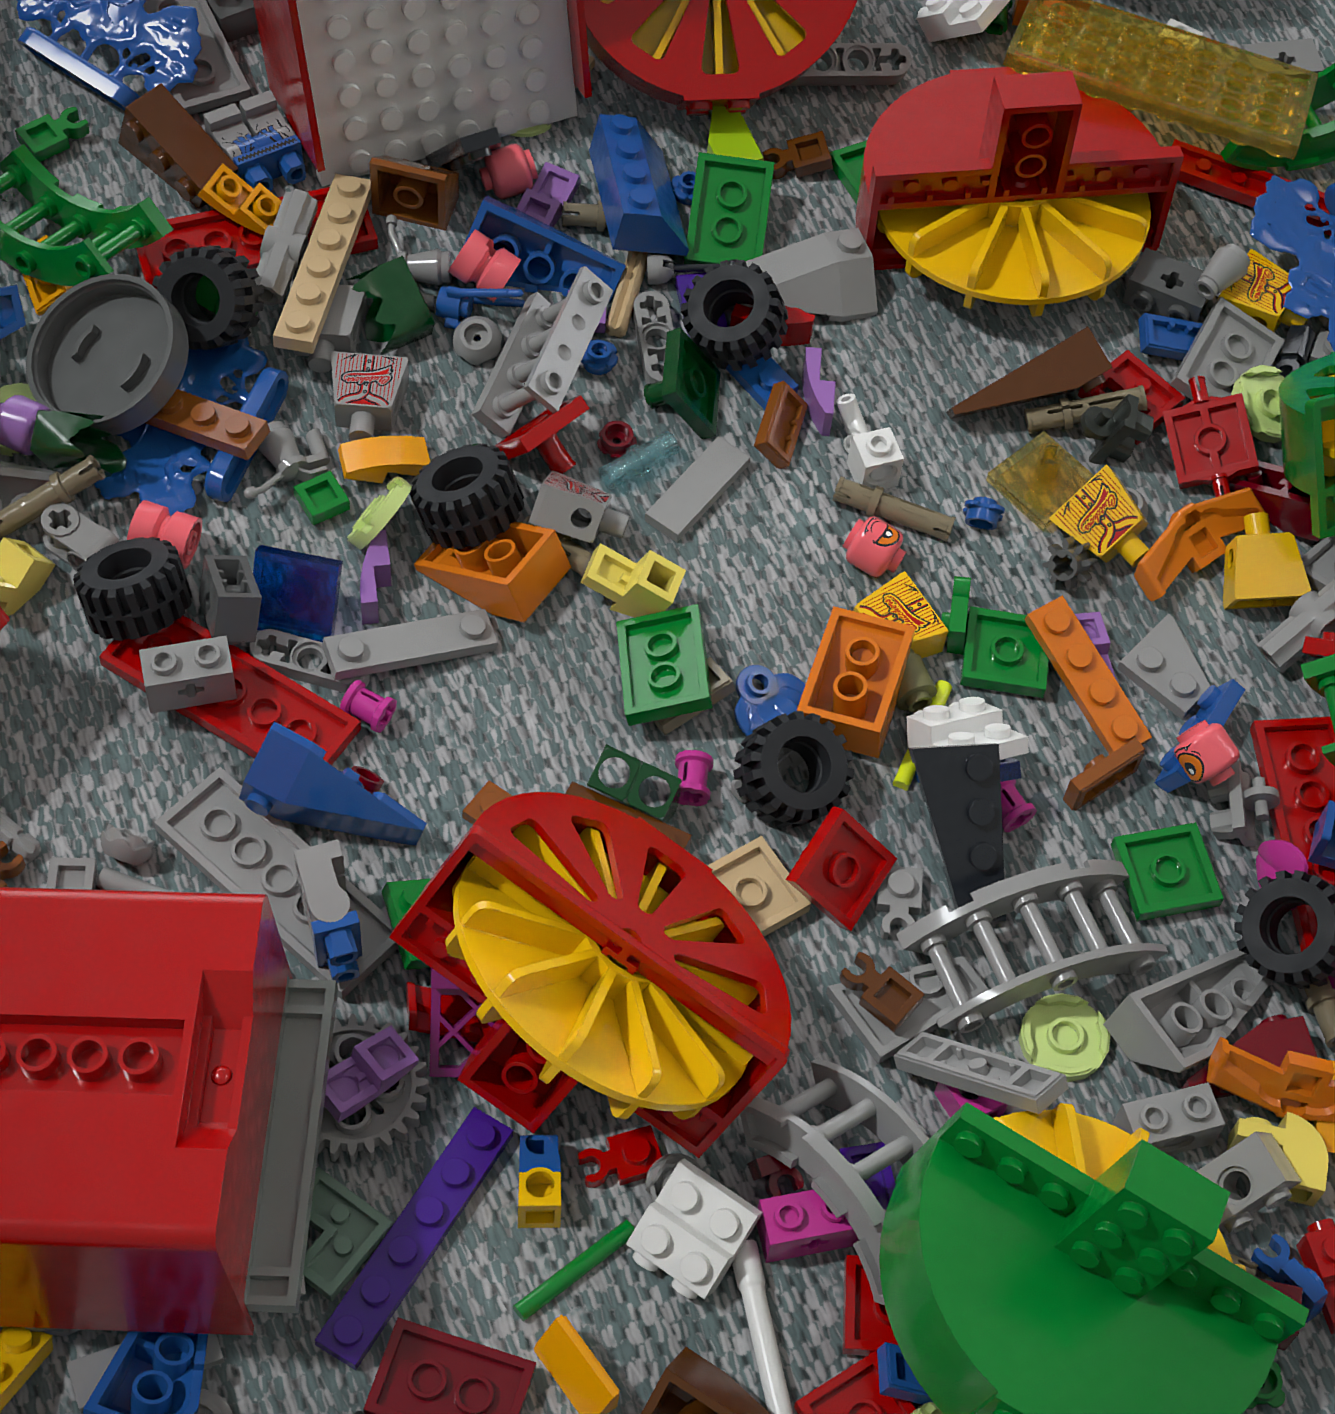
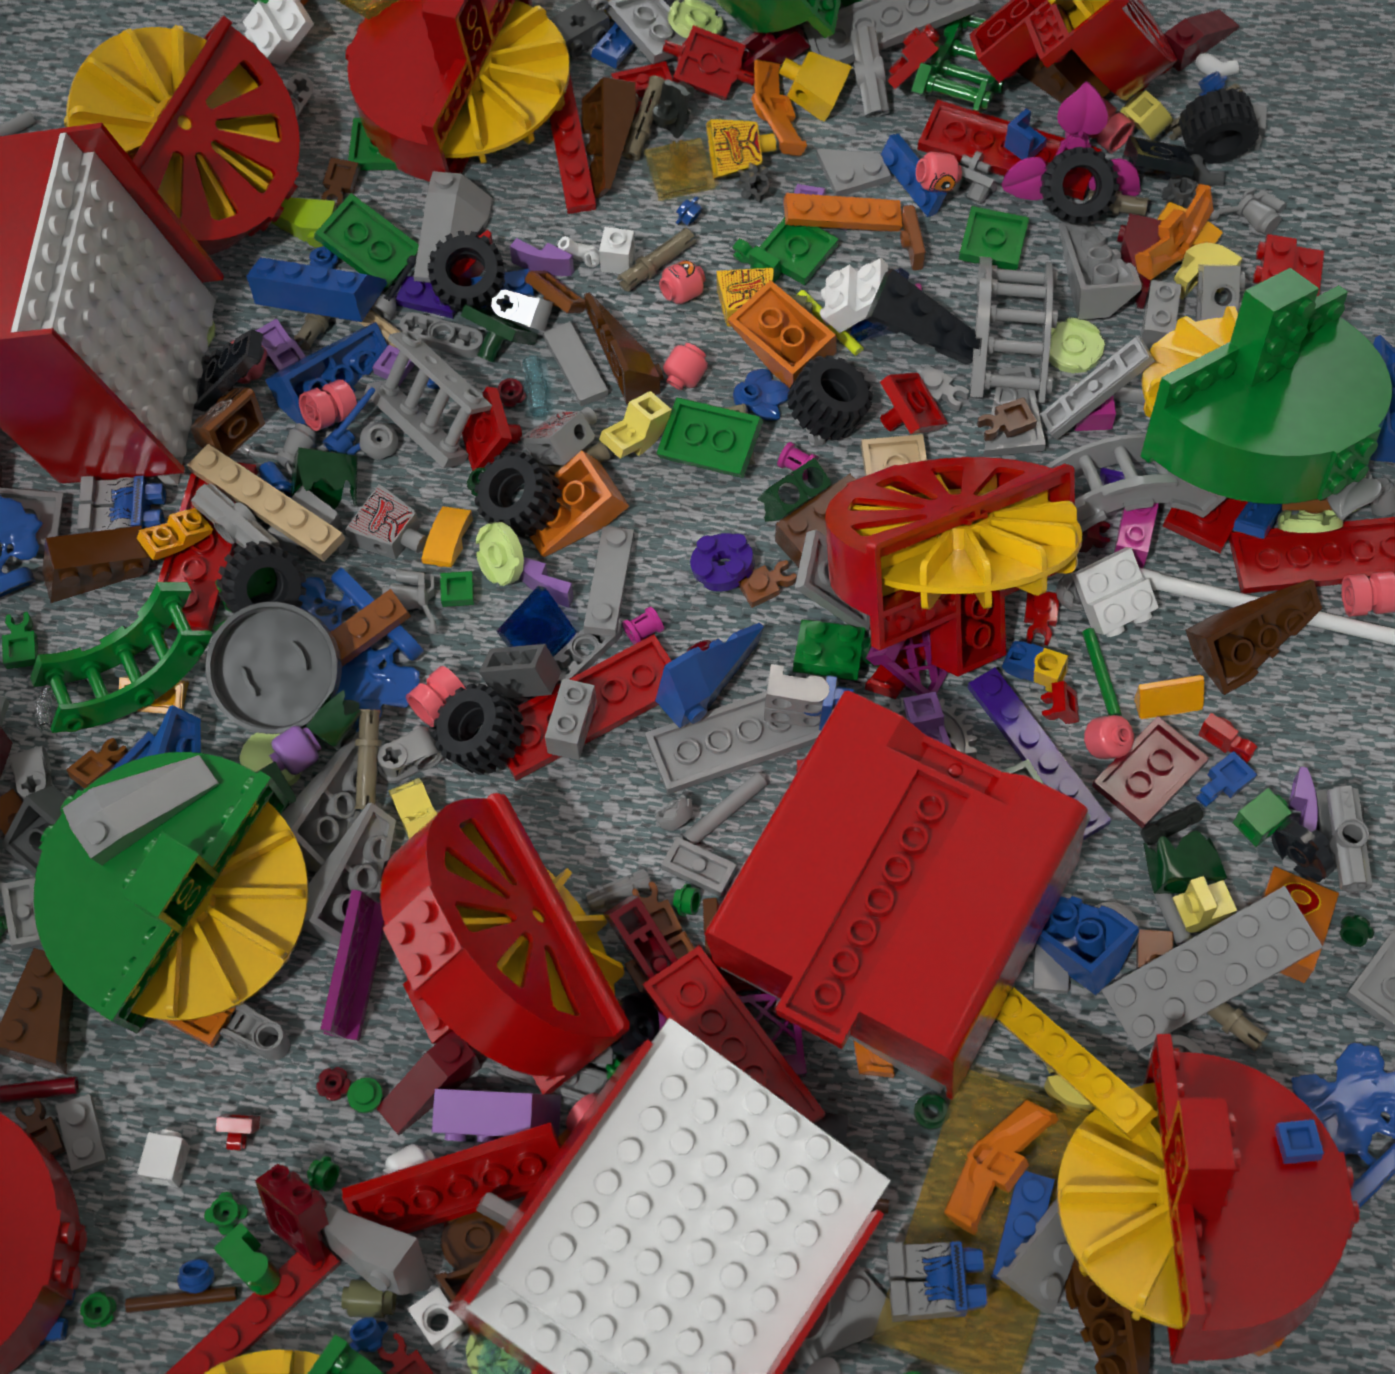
camera: 55 degrees left, 5 degrees up
(365, 261) = (272, 475): none -> blue cone
(484, 1308) = (1109, 737): none -> coral head
(499, 1235) = (1064, 703): none -> red tile
(507, 735) = (717, 547): none -> dark purple plate
(723, 528) = (627, 358): none -> reddish brown wedge
(731, 398) = (527, 309): none -> piece
(755, 600) = (685, 366): none -> coral head
(1003, 354) = (572, 155): none -> red plate

